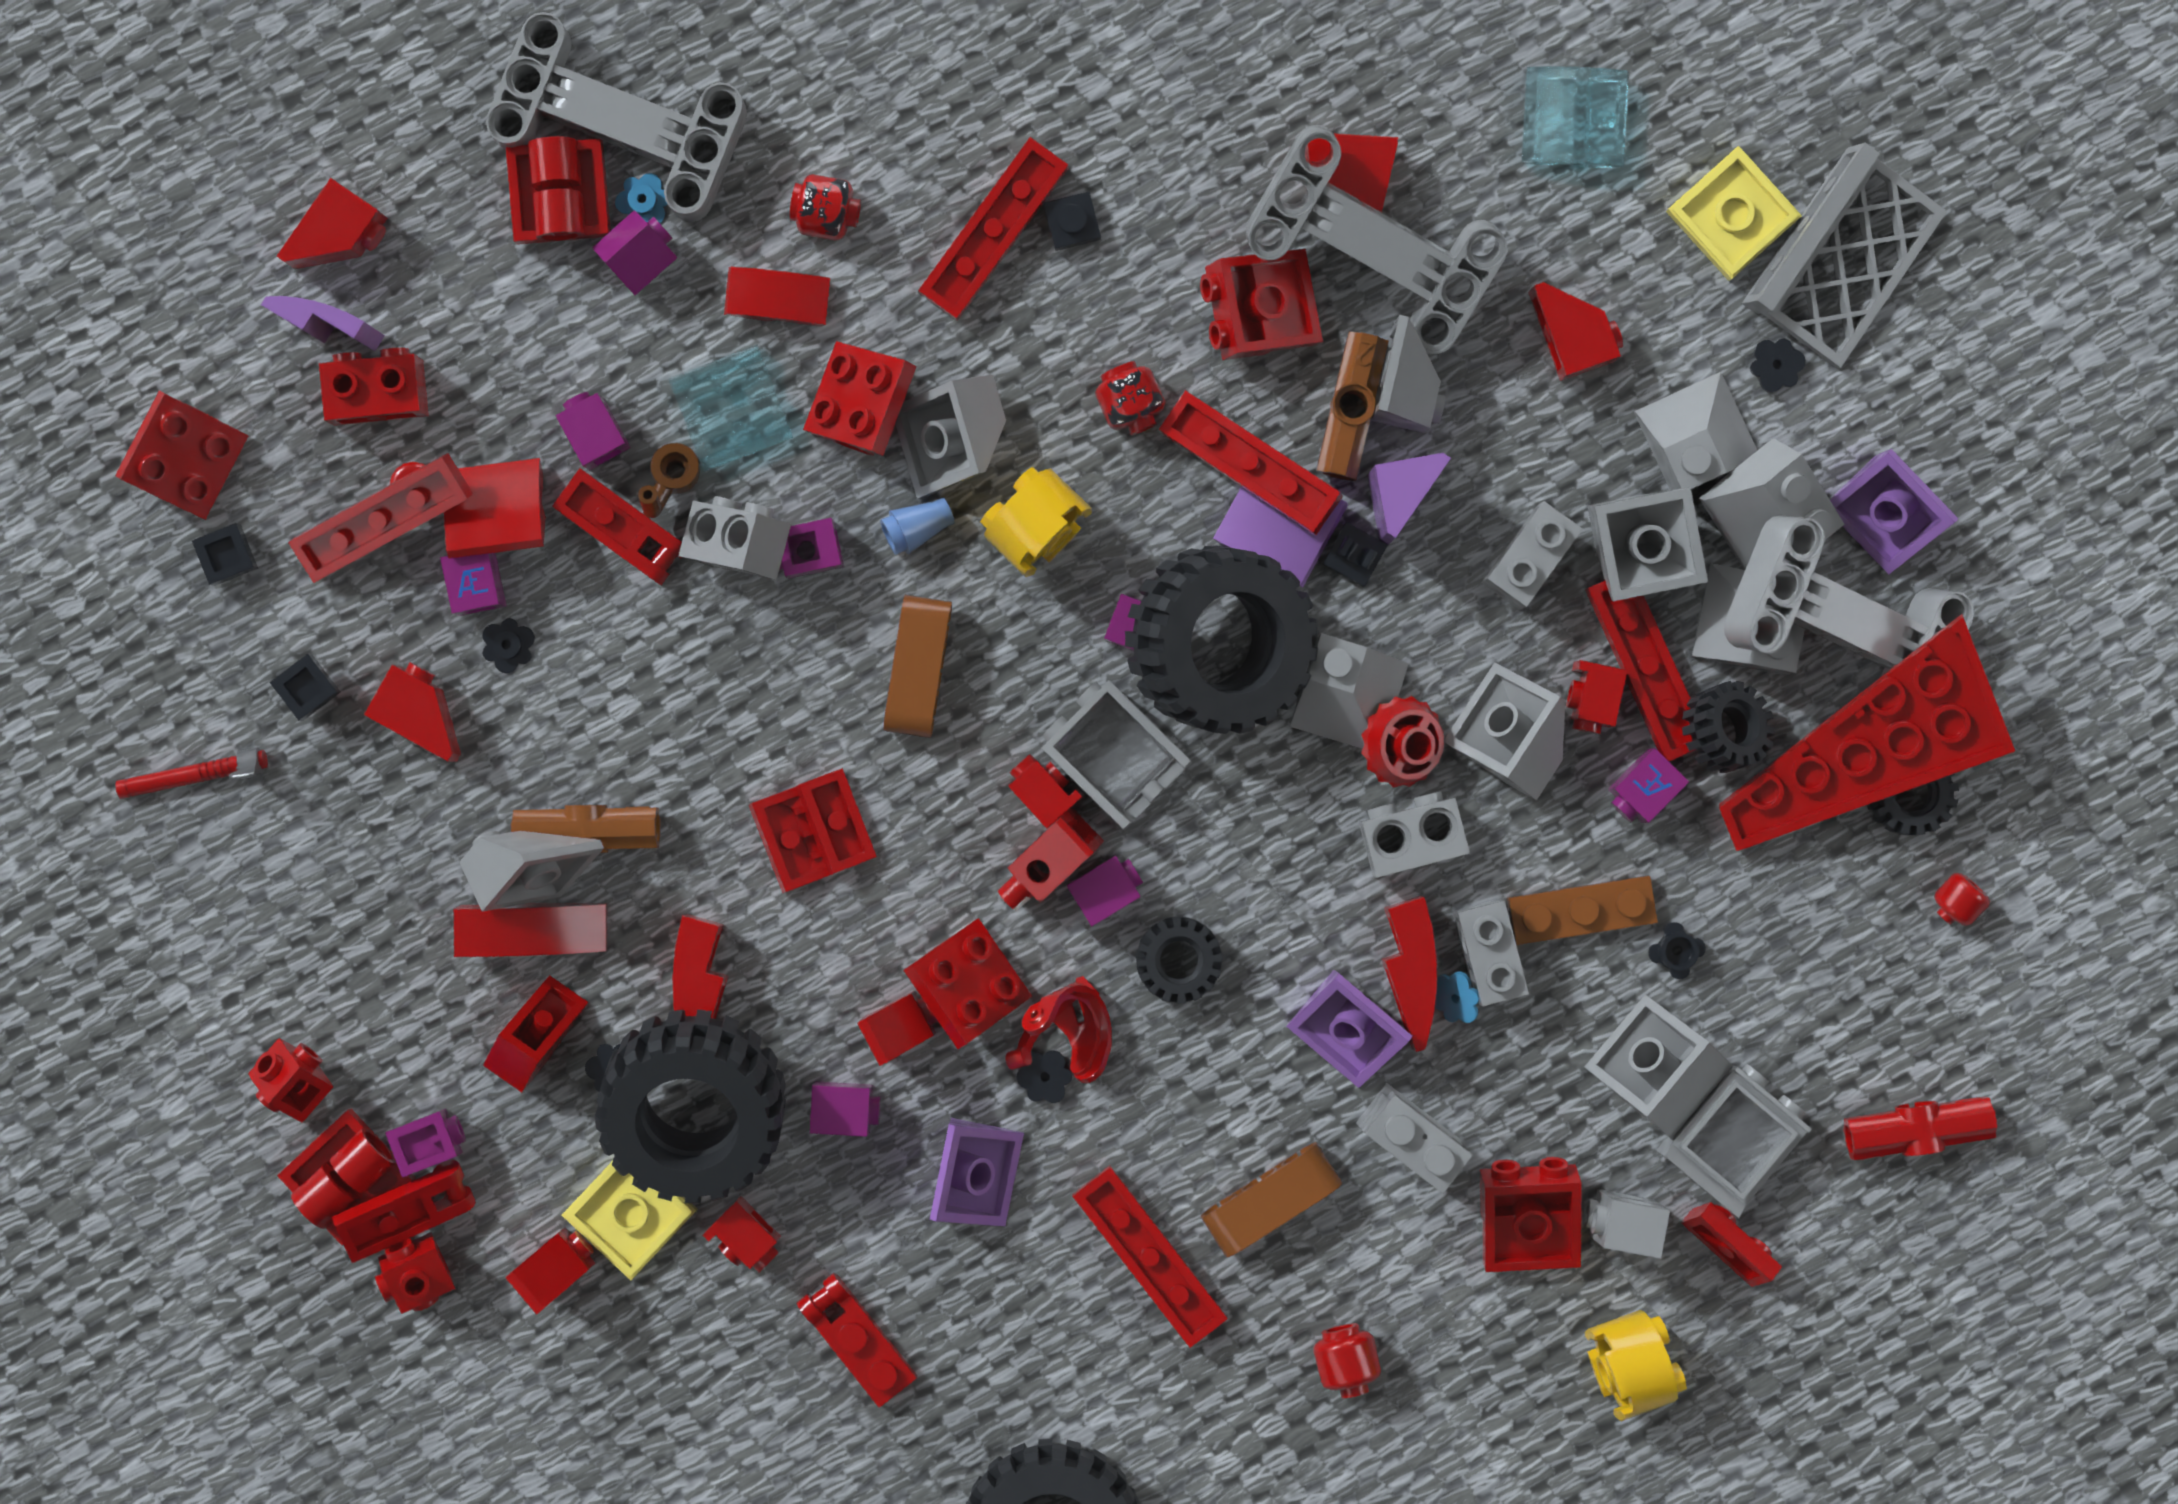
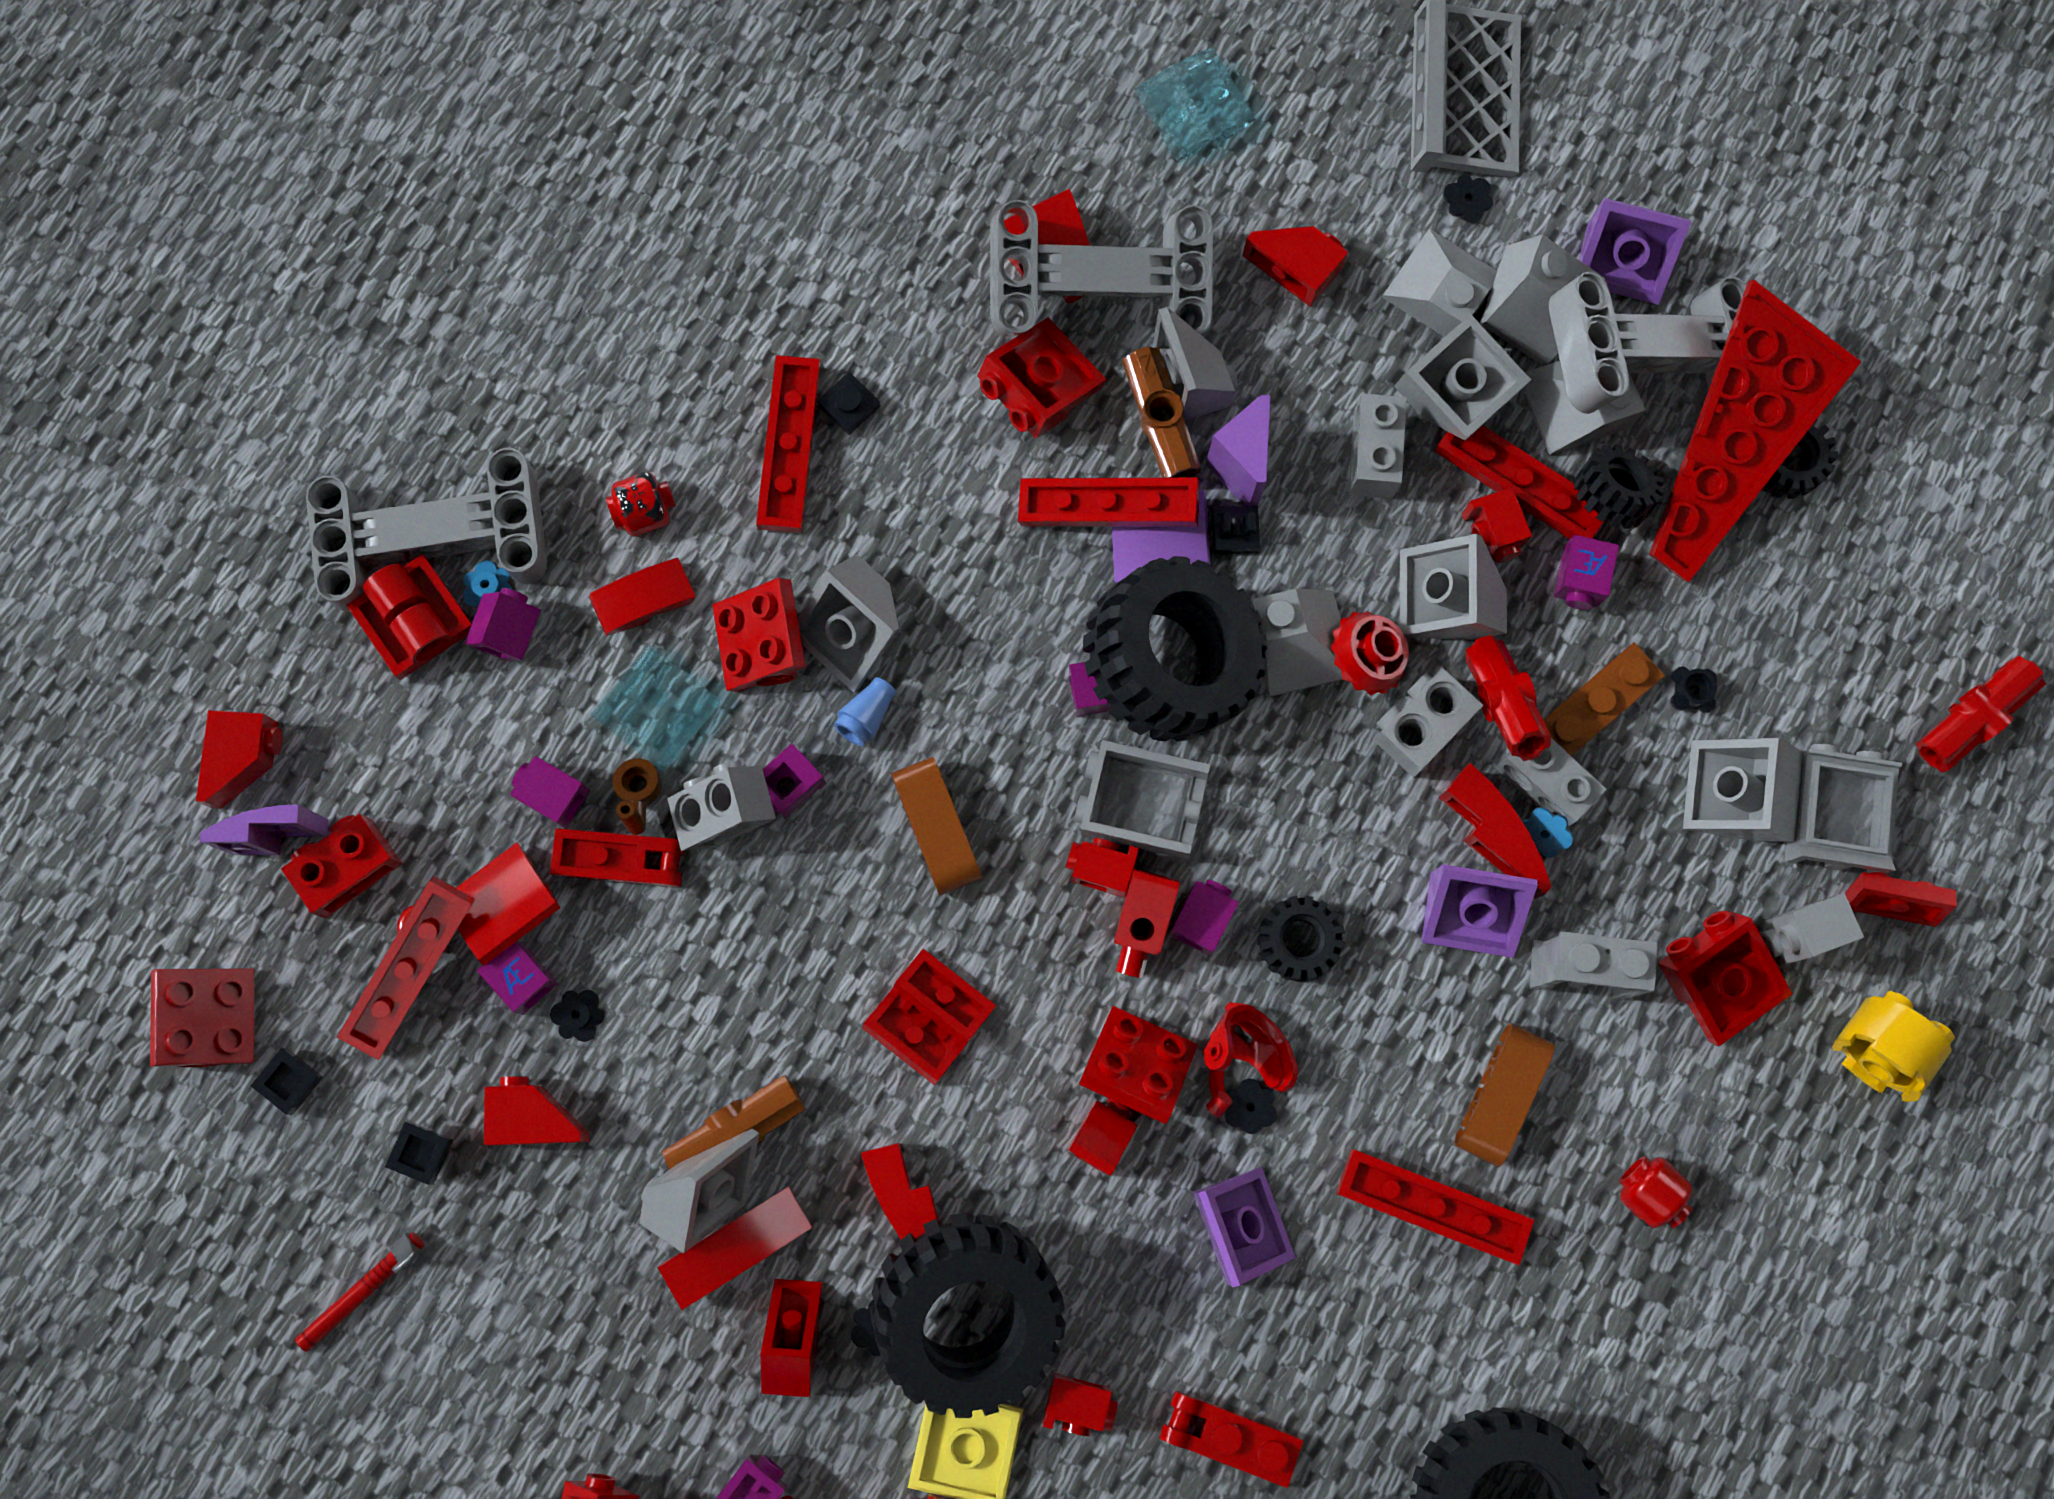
camera: 35 degrees left, 10 degrees down
(843, 1109) = (1098, 1238): magenta brick -> none
(1035, 519) = (961, 647): yellow brick -> none
(1130, 398) = (979, 510): red head -> none
(1494, 860) = (1508, 698): none -> red piece
(1733, 213) = (1361, 108): light yellow tile -> none
(1961, 900) = (1886, 516): red piece -> none

